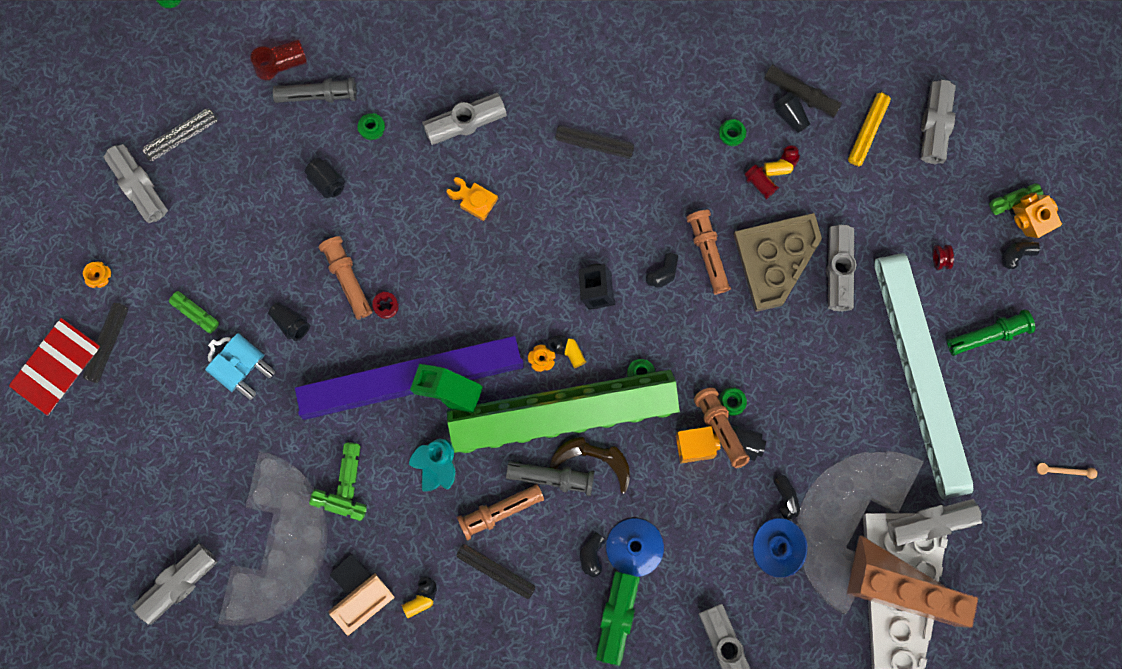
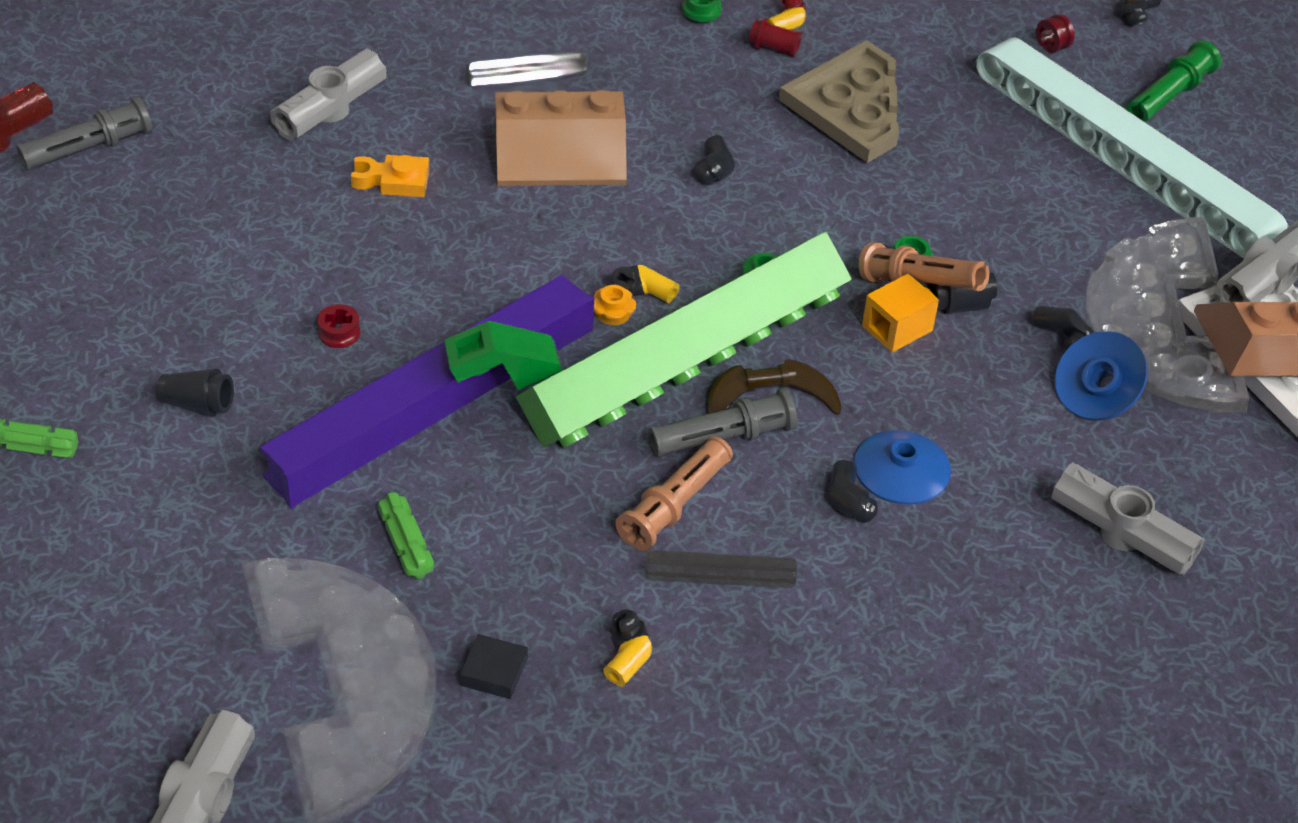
camera: 30 degrees left, 30 degrees down
(235, 363) = (139, 466): medium azure piece -> none
(324, 178) = (156, 216): black brick -> none
(337, 504) = (416, 577): bright green axle -> none
(341, 266) = (243, 301): nougat pin -> none
(361, 604) = (537, 692): light nougat tile -> none
(376, 132) = (193, 148): green plate -> none
(436, 468) = (539, 476): teal plate -> none
(578, 217) = (560, 138): none -> medium nougat slope
(593, 296) = (638, 199): black brick -> none
(617, 618) = (944, 546): green piece -> none
(705, 239) = (748, 110): nougat pin -> none
(841, 284) = (942, 80): light grey piece -> none

